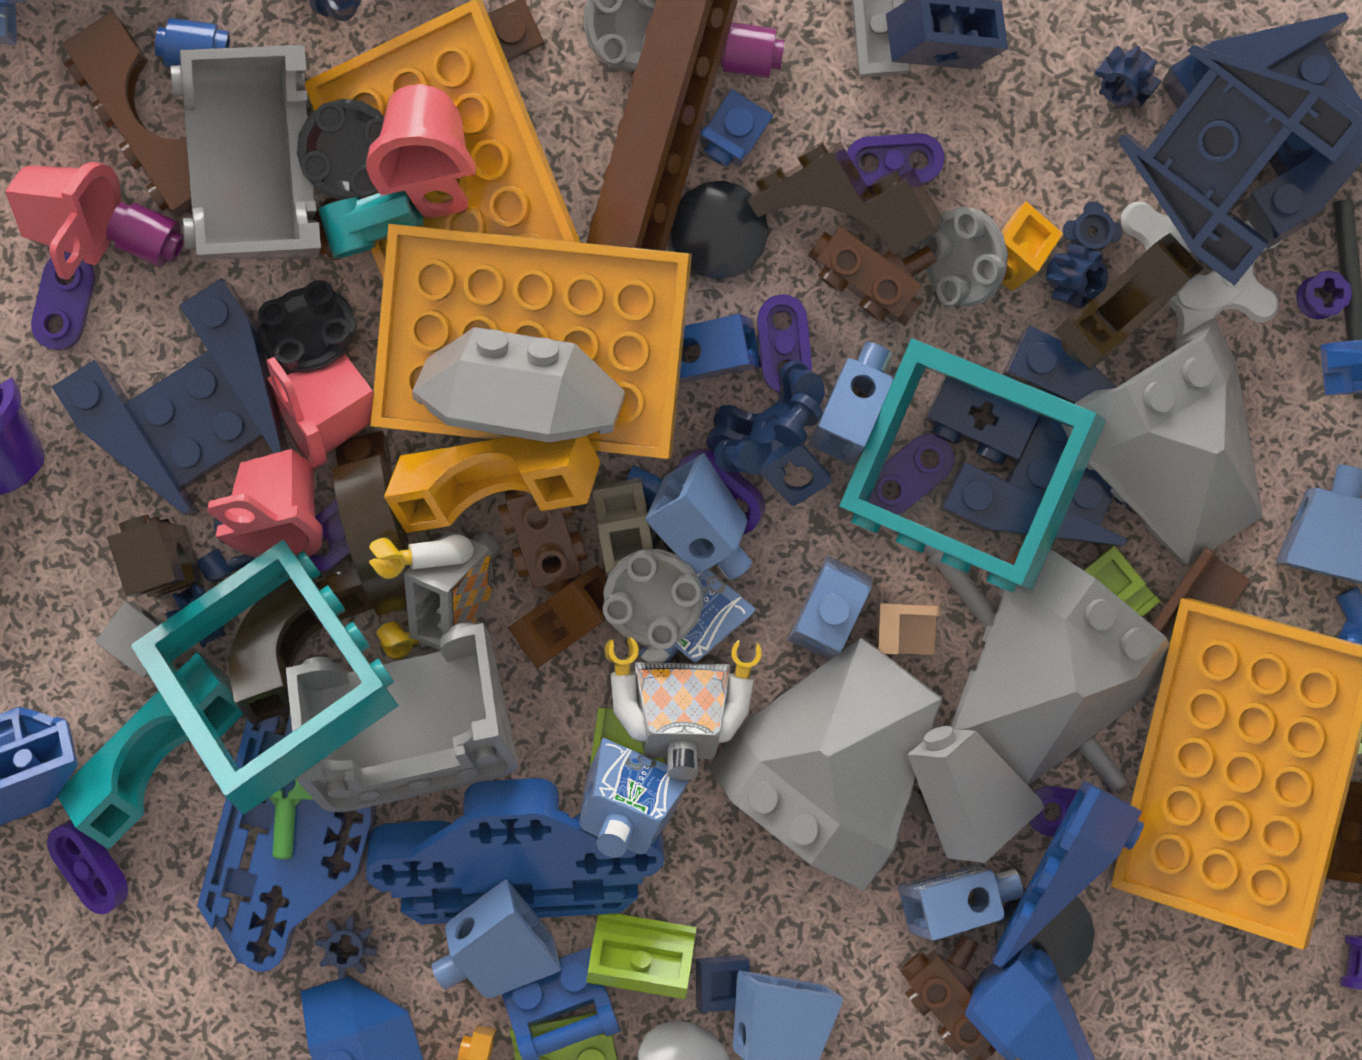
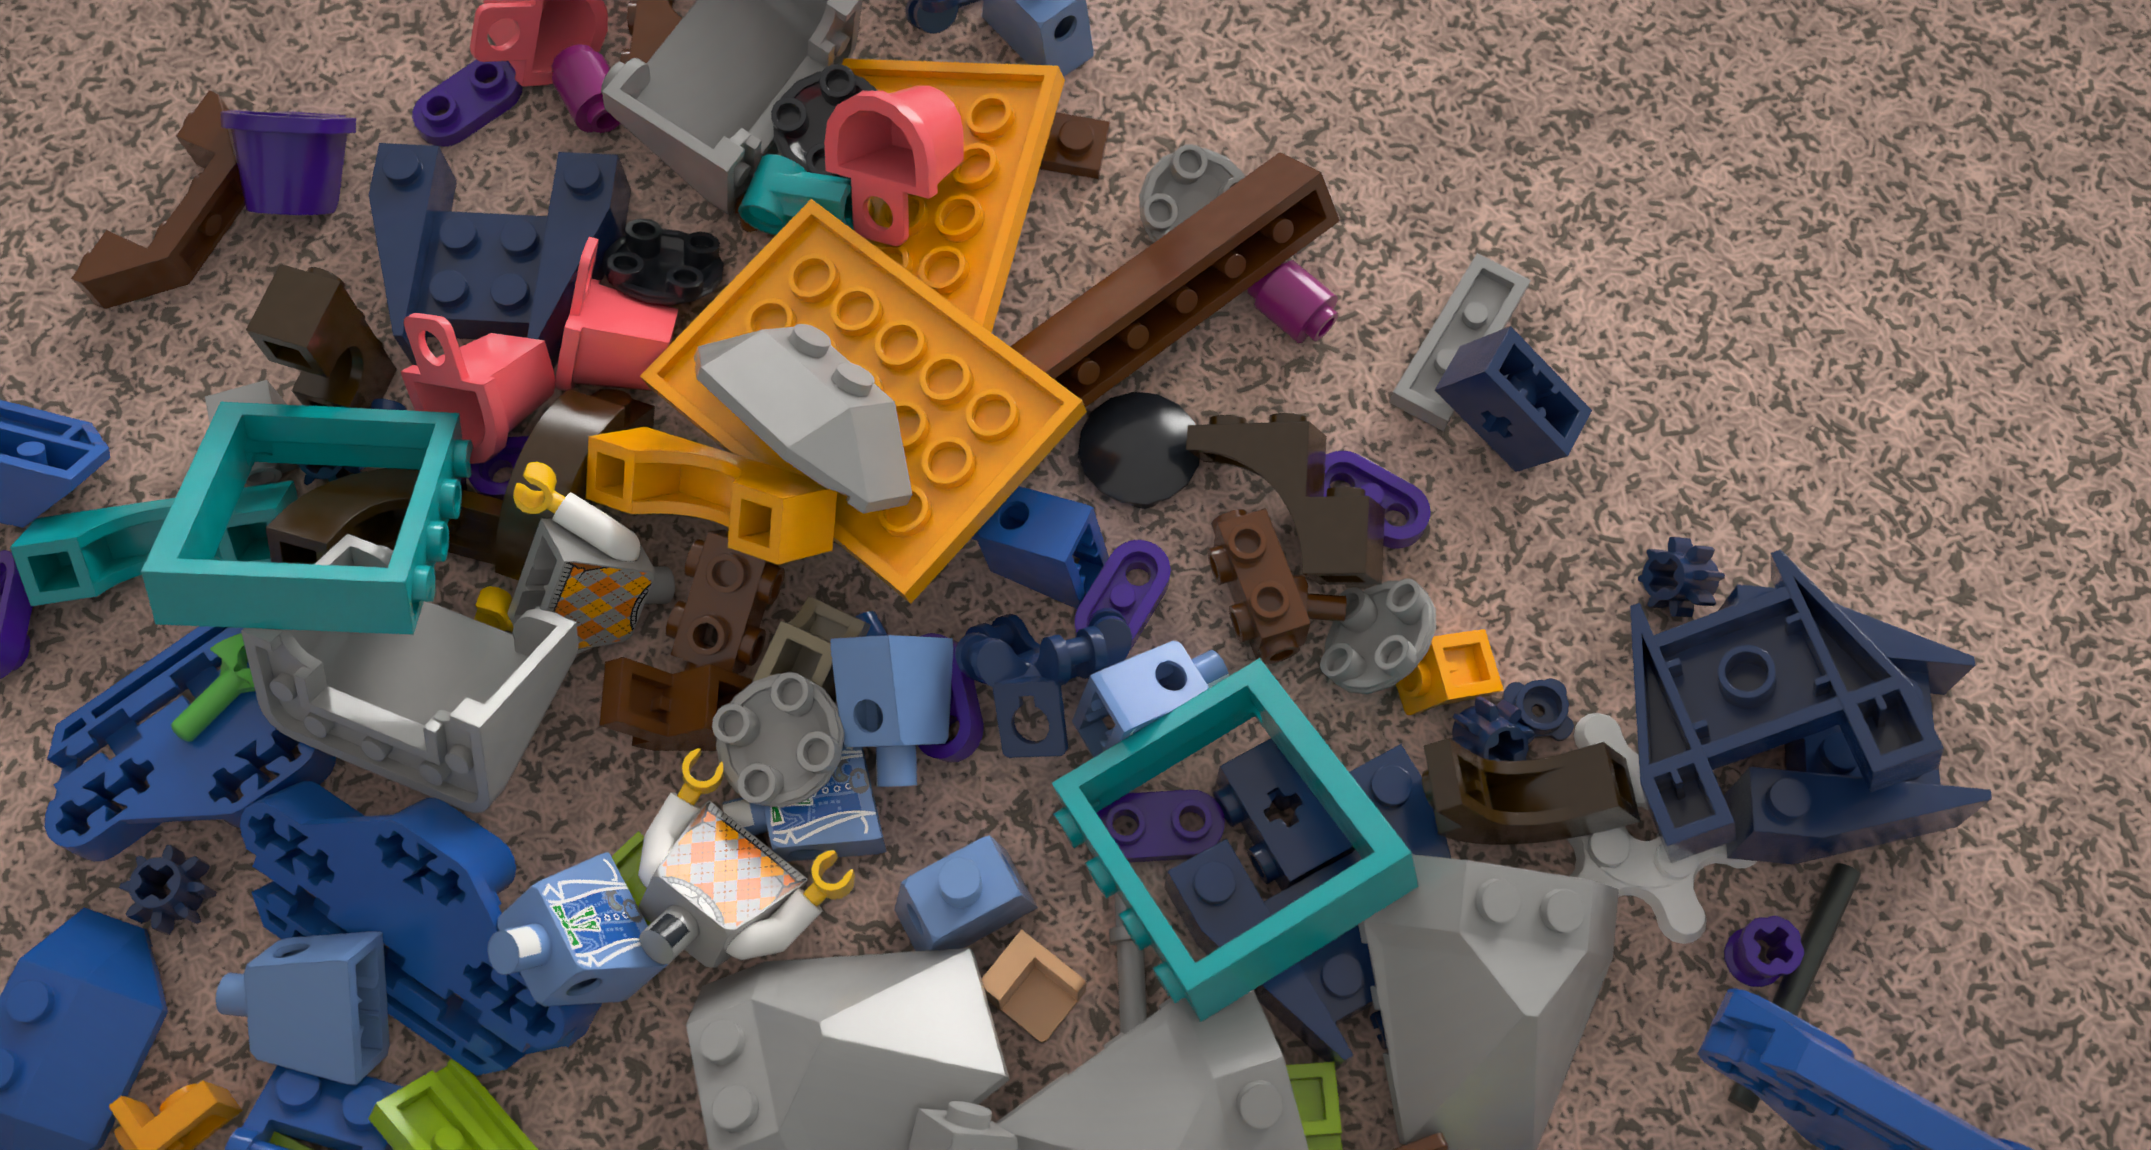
camera: 35 degrees right, 20 degrees down
(734, 130) = (1225, 366): blue bracket -> none

